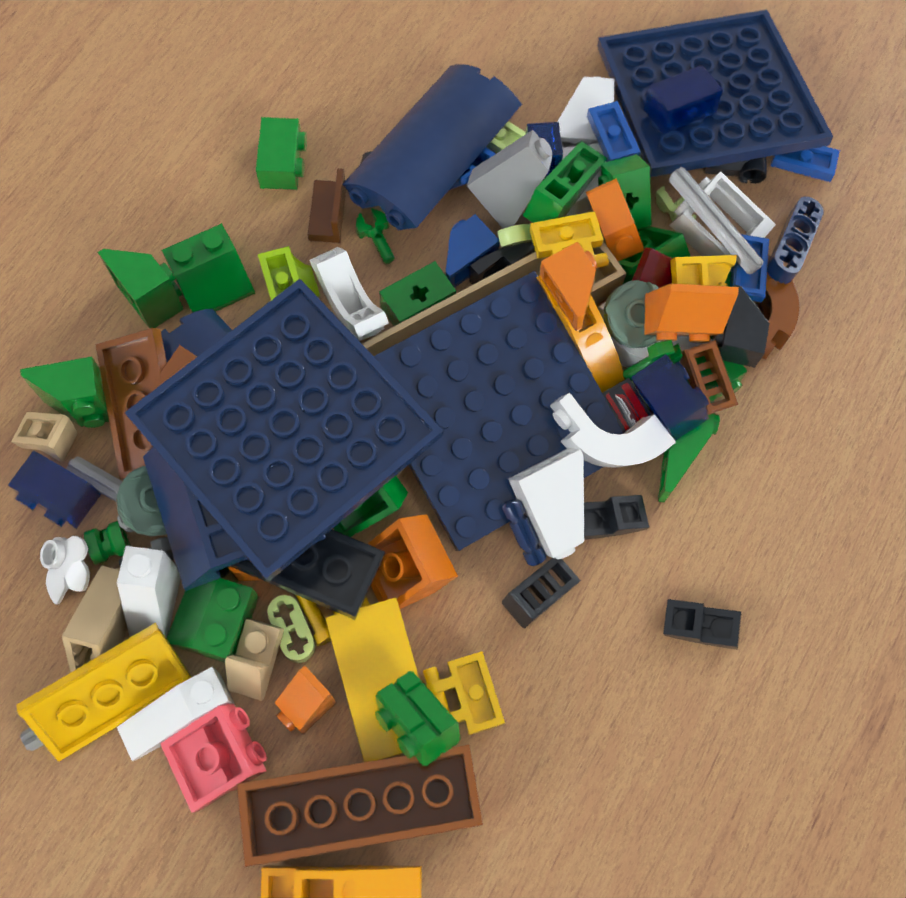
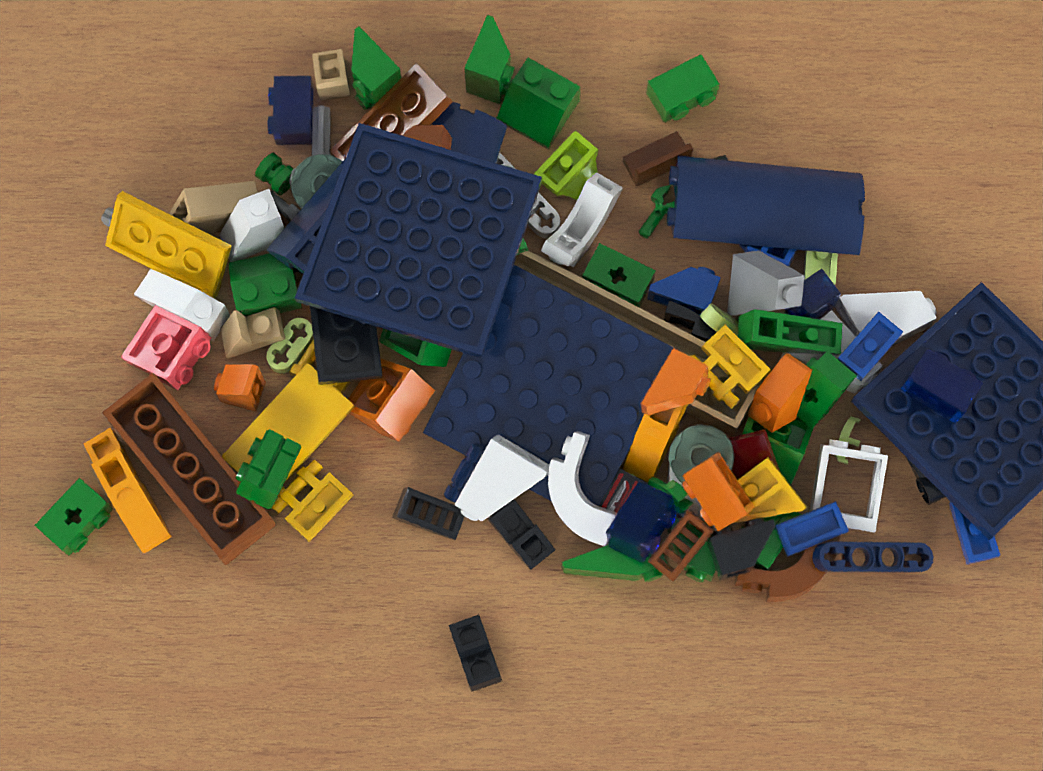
camera: 65 degrees right, 5 degrees up
(65, 566) = (246, 152): white plate -> none
(716, 220) = (830, 474): light grey axle -> none

